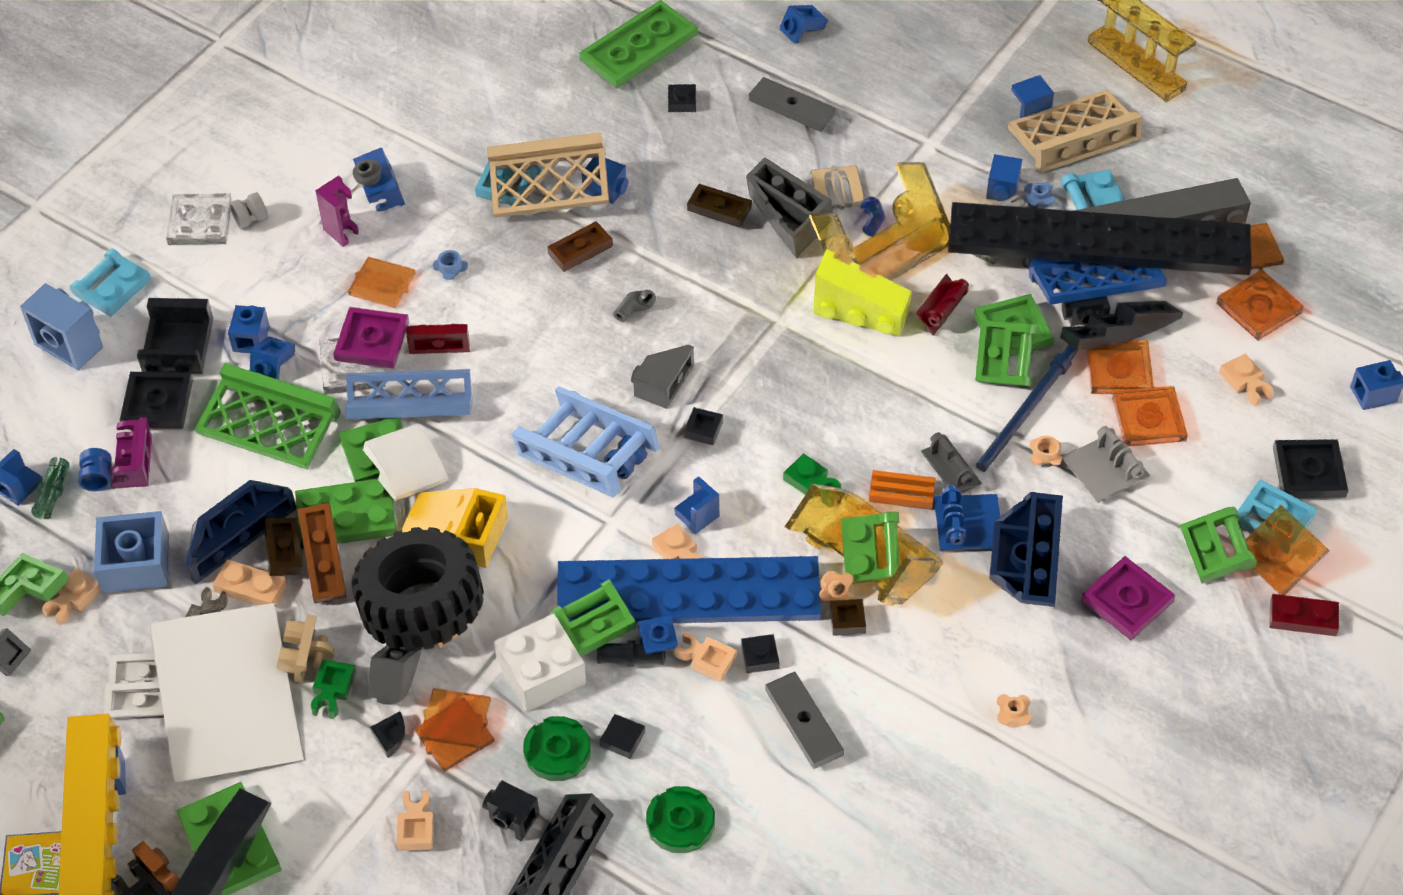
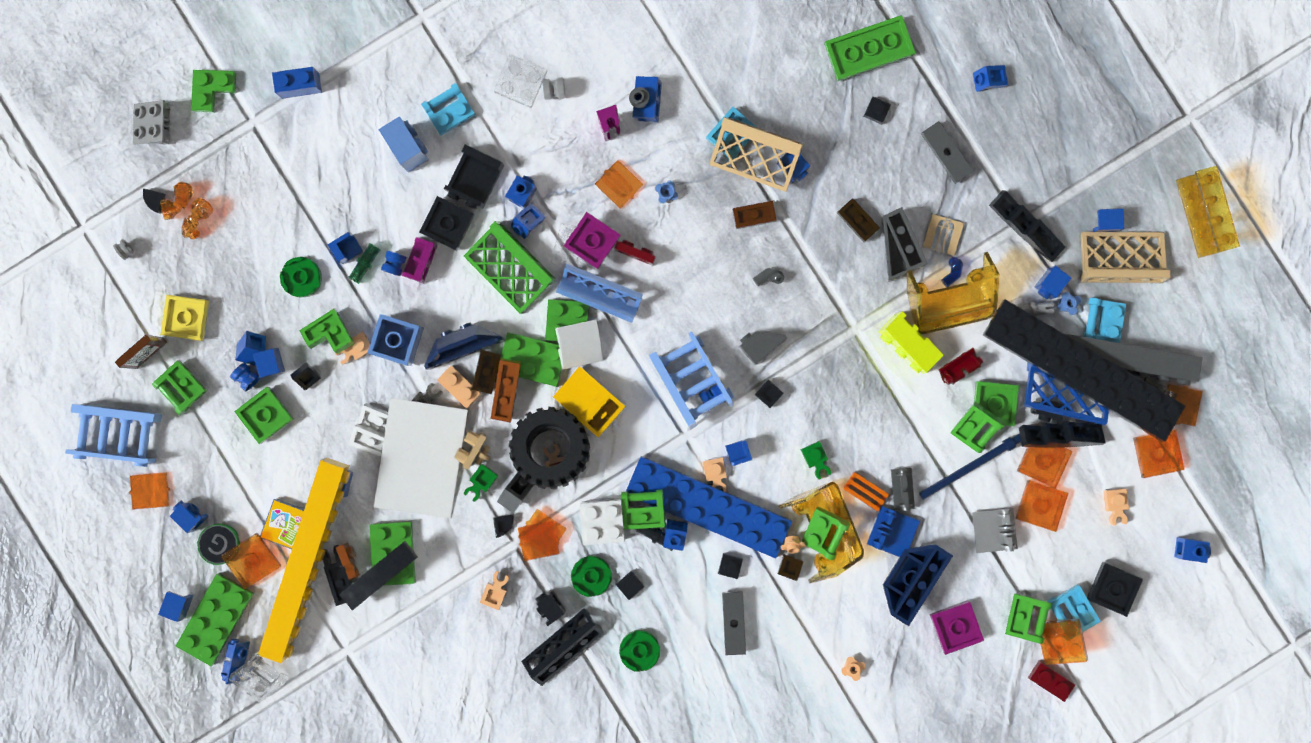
camera: 25 degrees right, 35 degrees up
(707, 658) = (699, 558): light nougat plate -> none
(944, 141) = (1027, 226): none -> black slope
(1045, 444) = (971, 502): light nougat plate -> none

